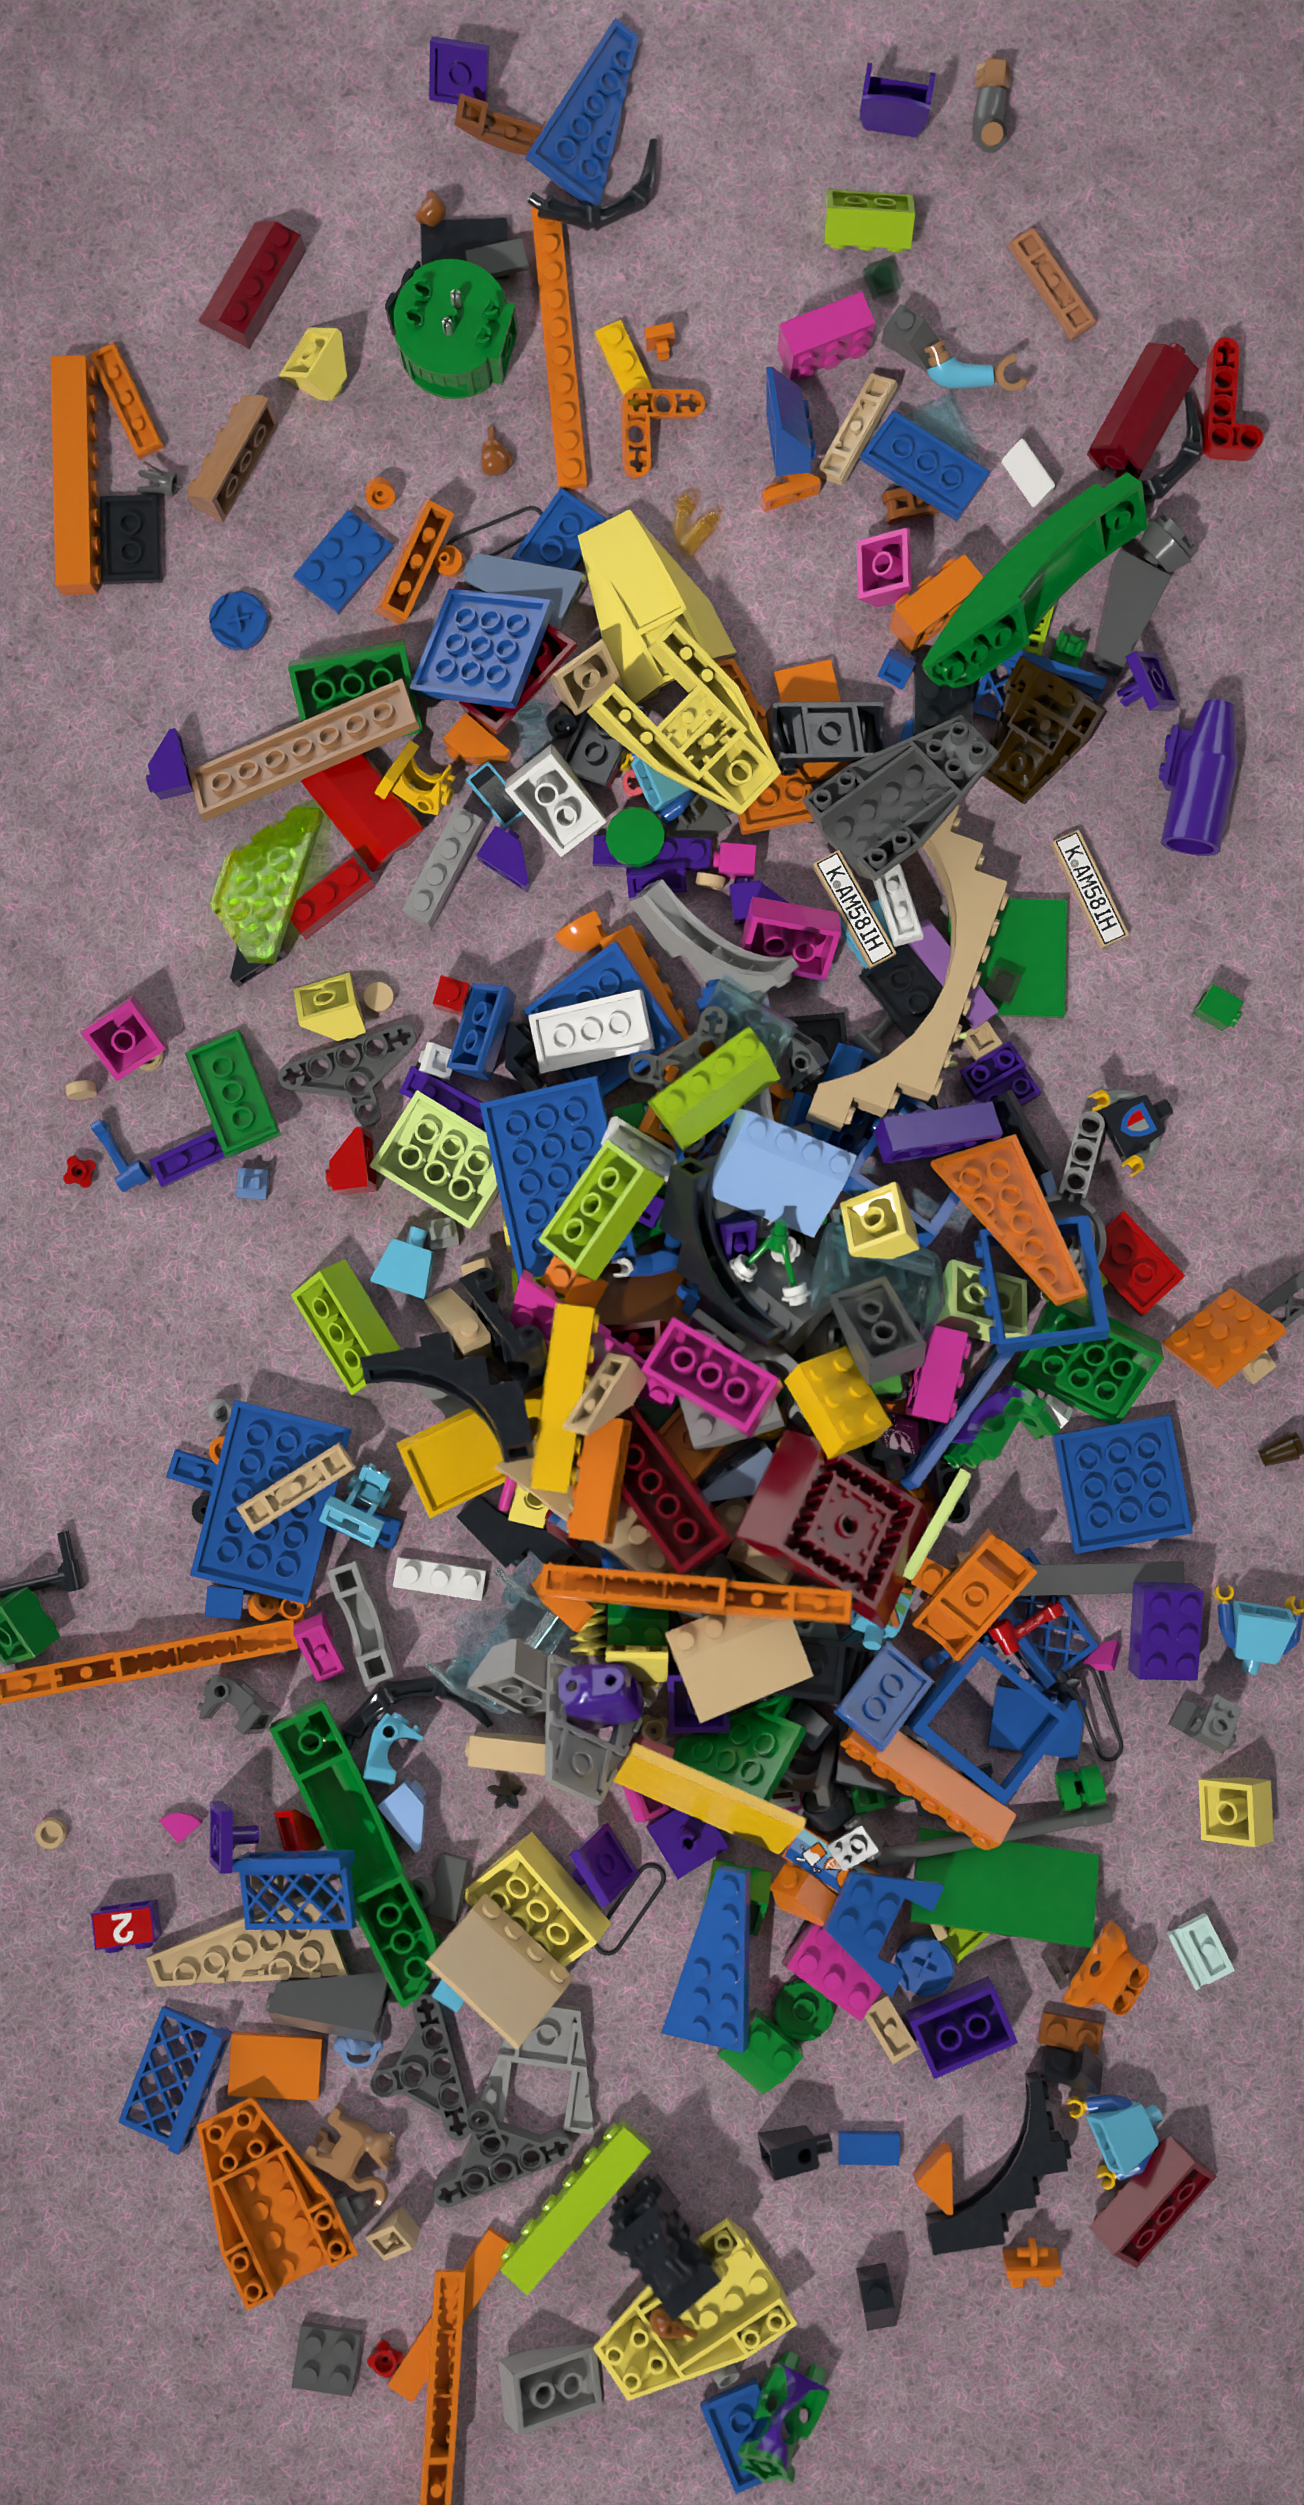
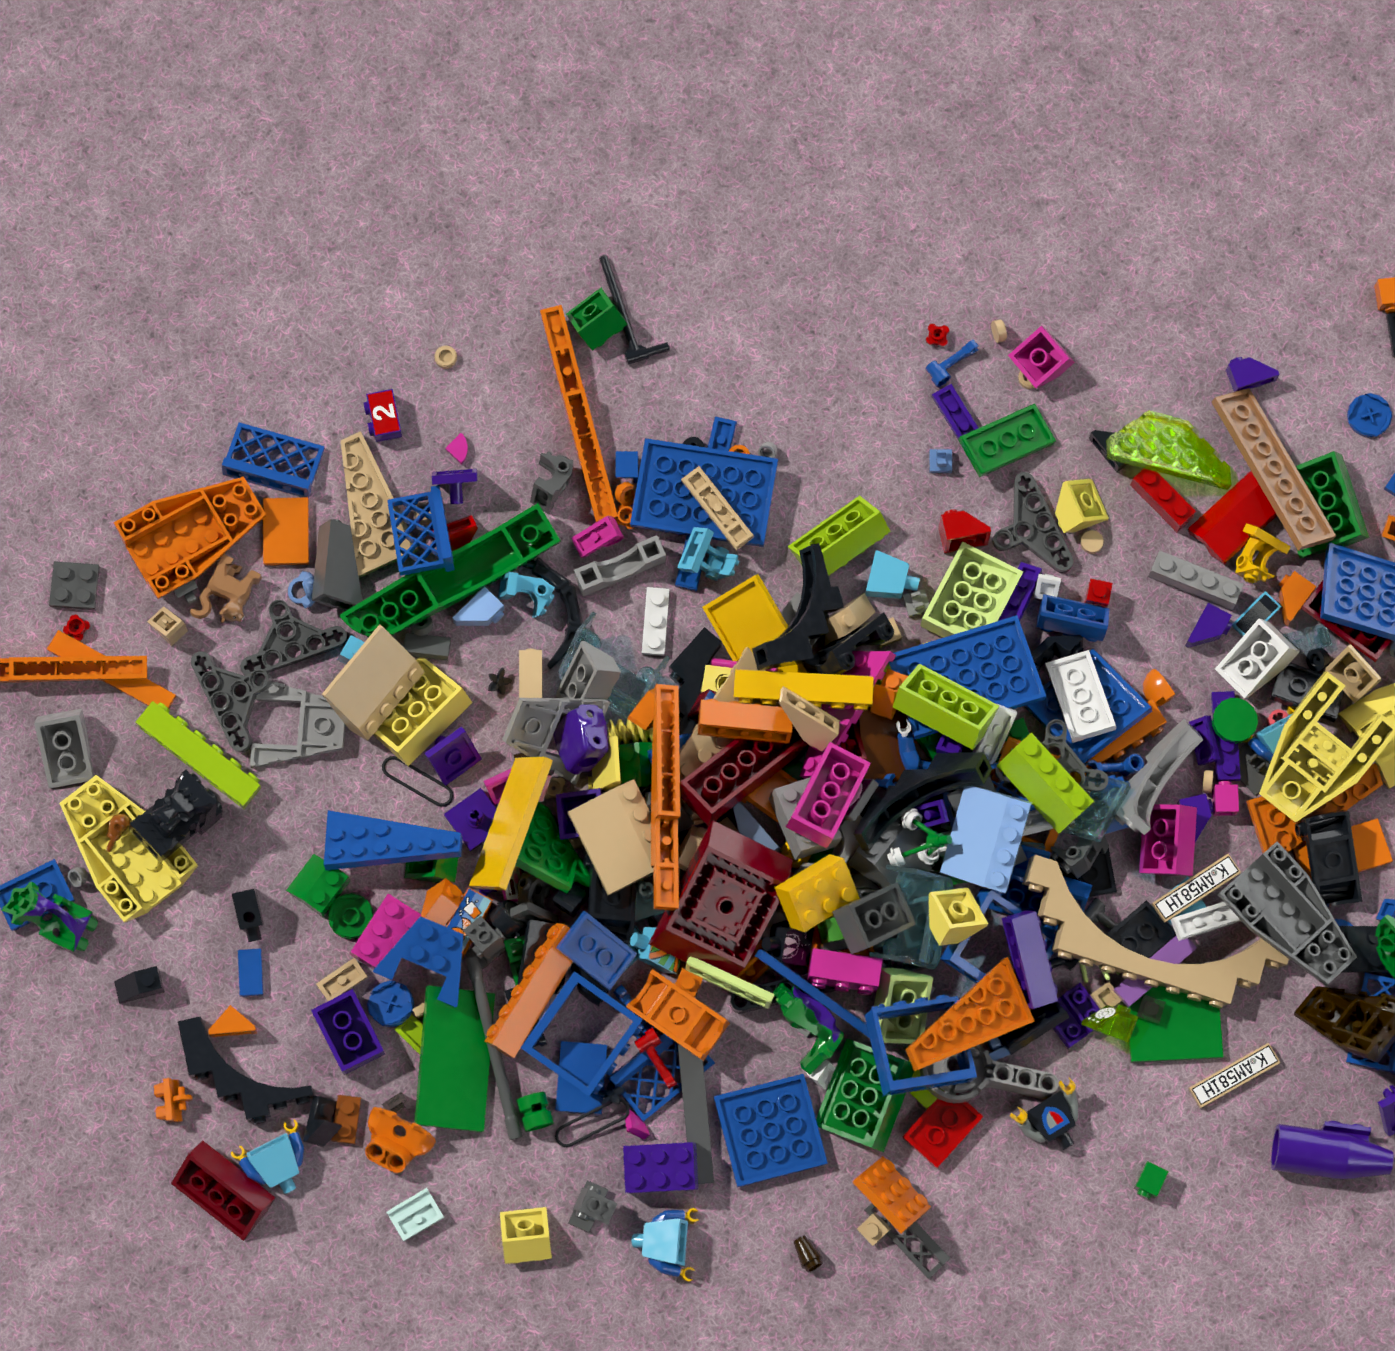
camera: 80 degrees right, 10 degrees down
(683, 975) = (1129, 766): none -> blue brick
(1018, 1035) = (1112, 1022): none -> clear neon green slope

